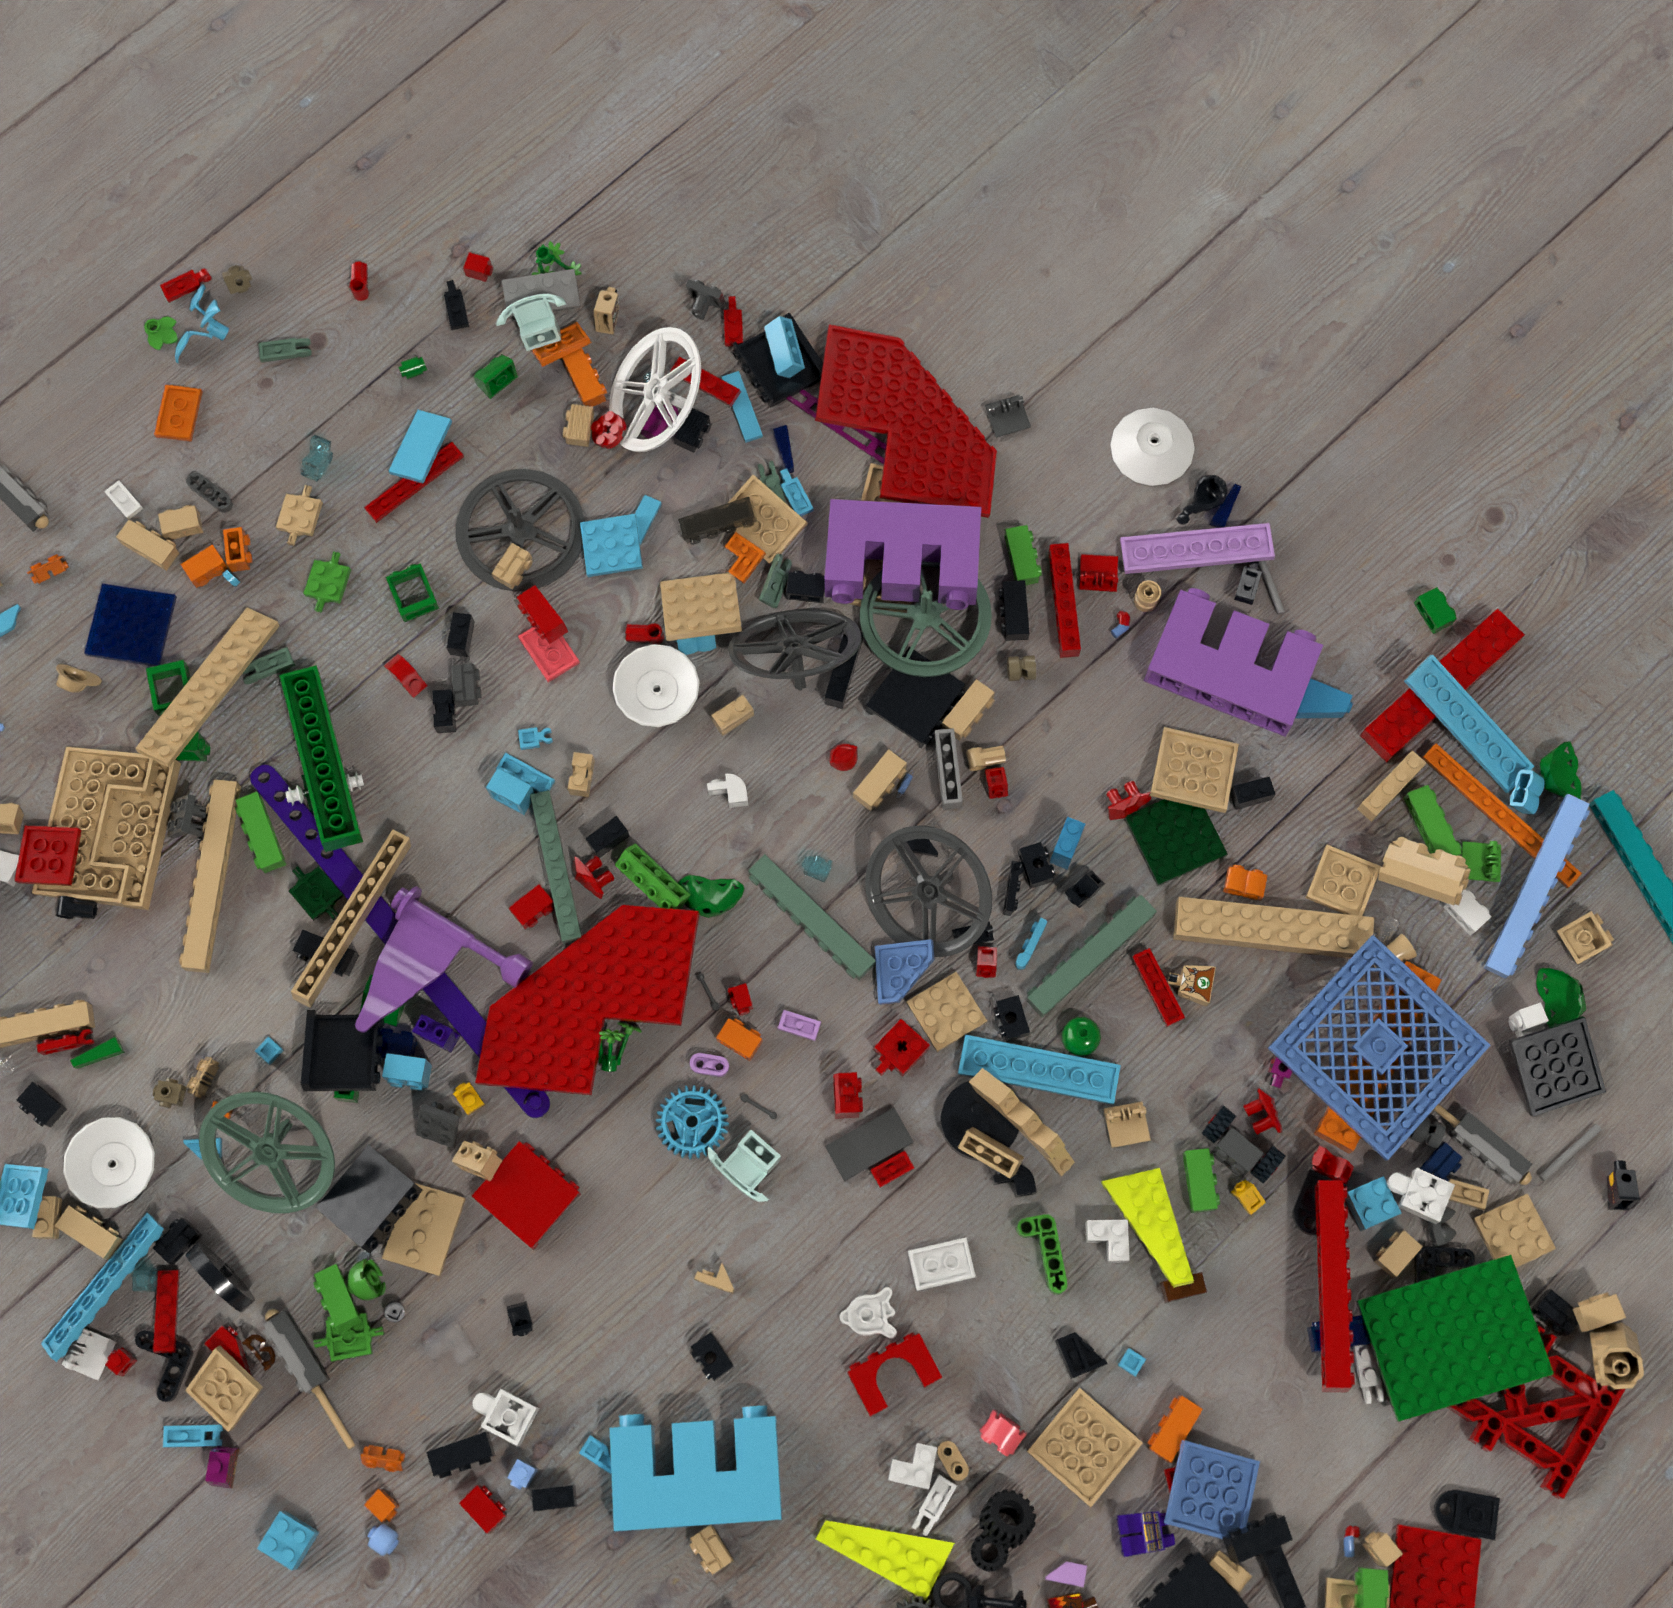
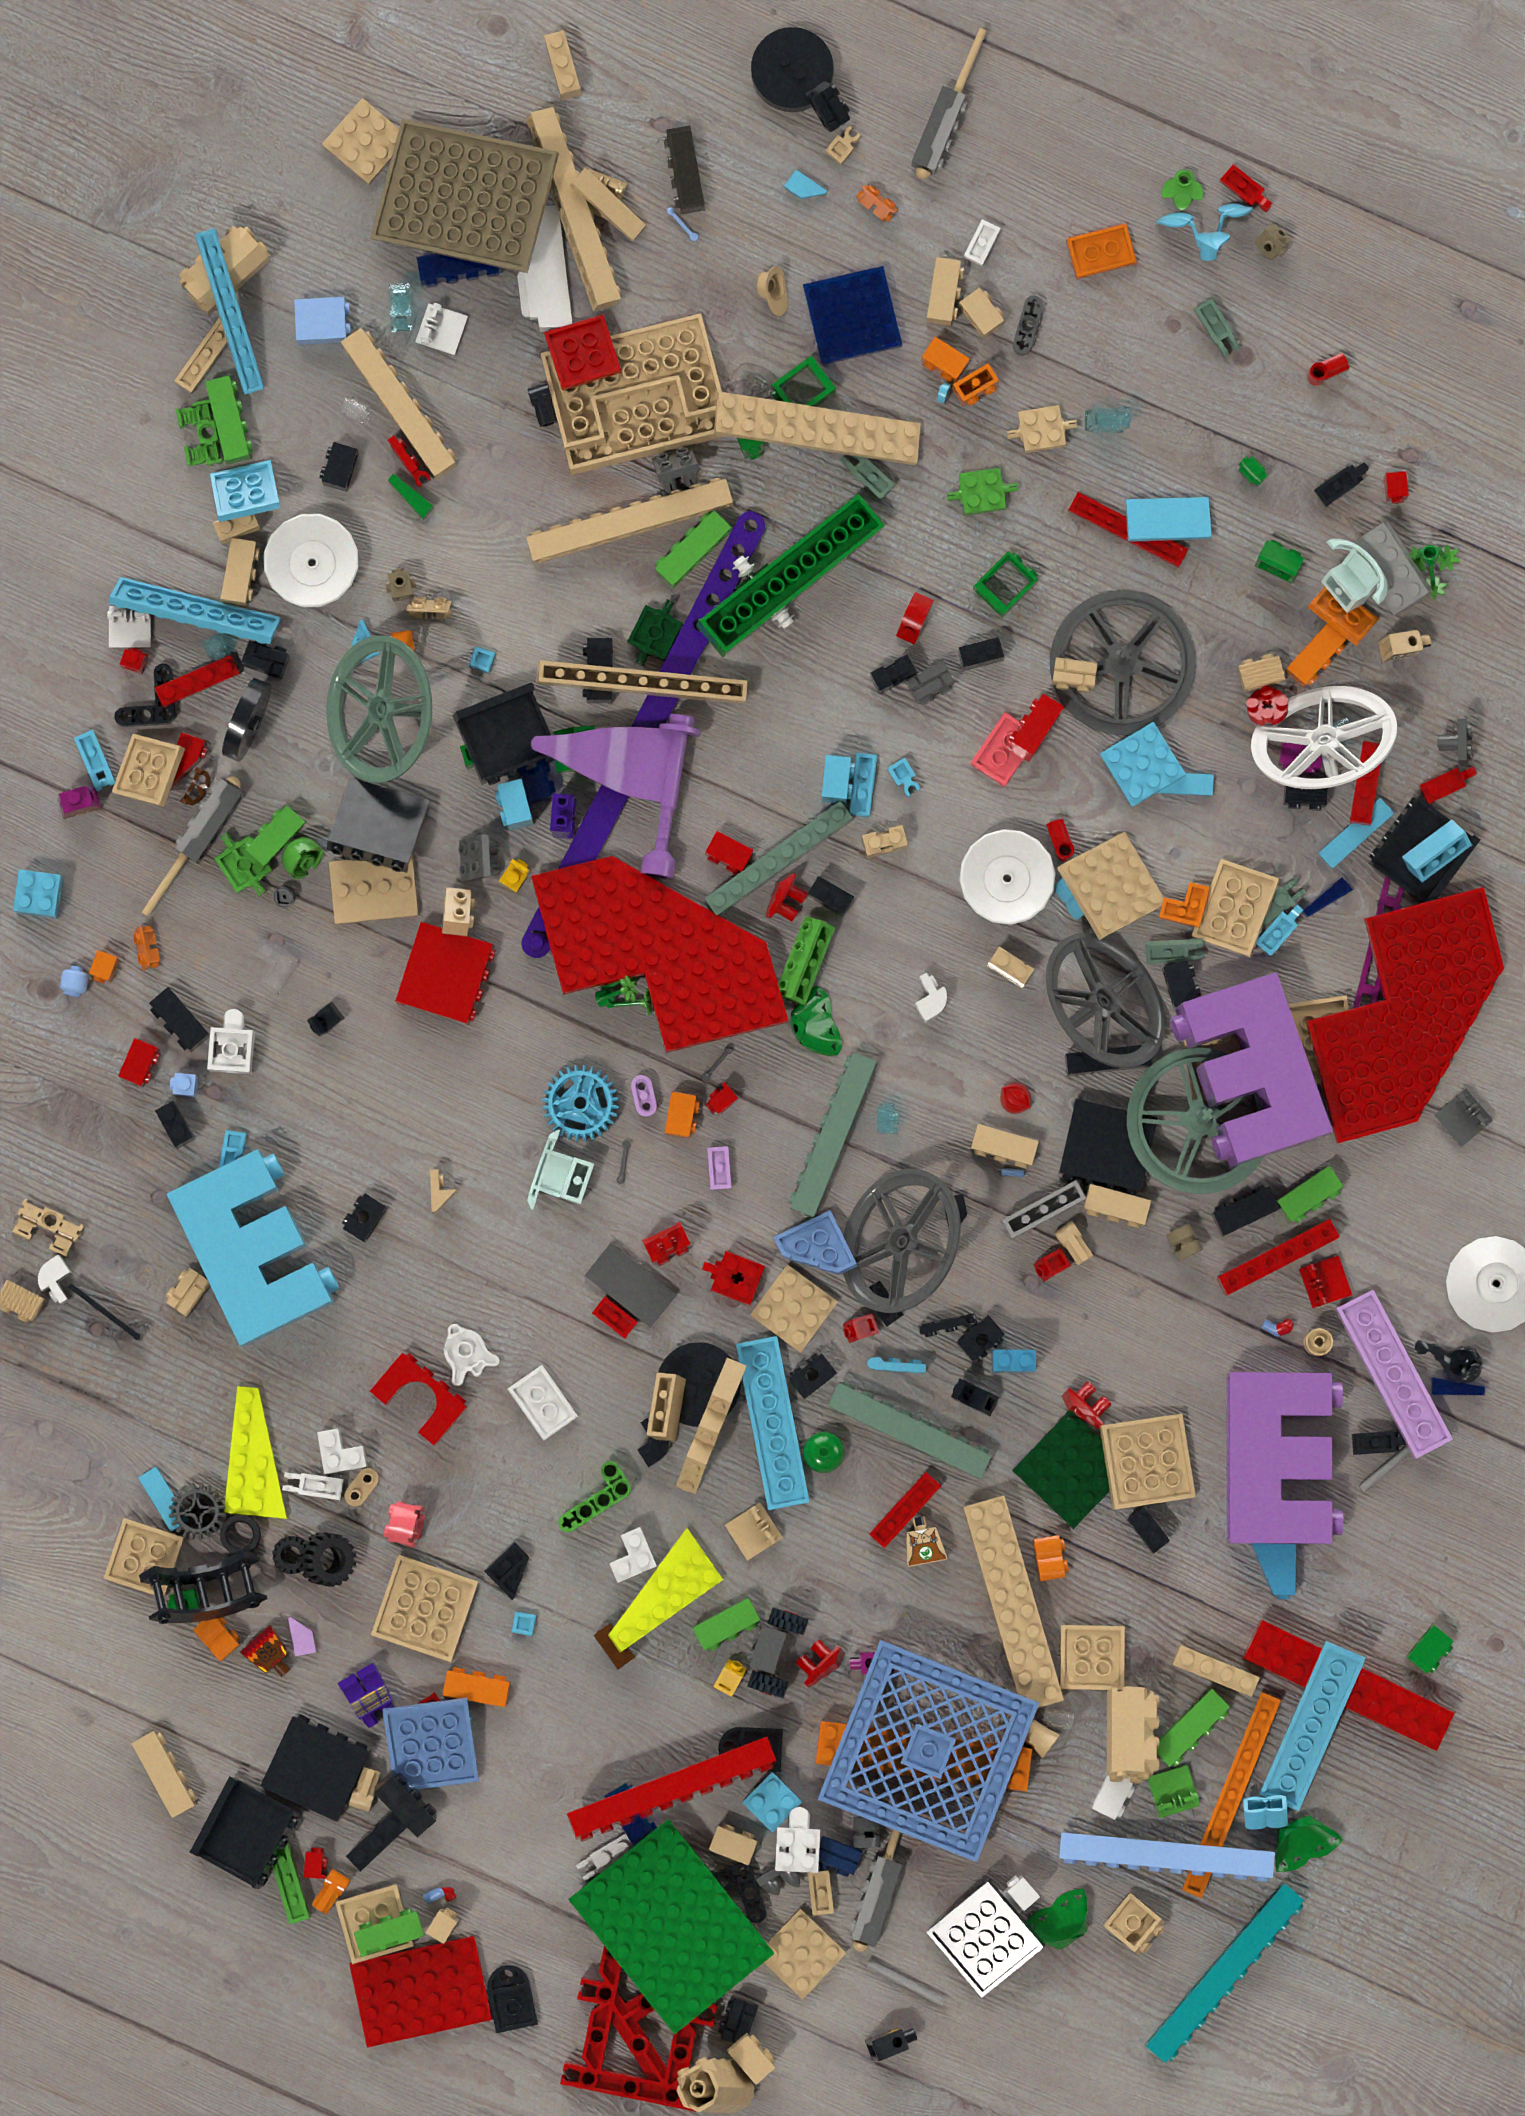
camera: 70 degrees right, 10 degrees up
(718, 520) = (1213, 863): clear smoke brick -> none
(1331, 1166) = (793, 1748): red brick -> none

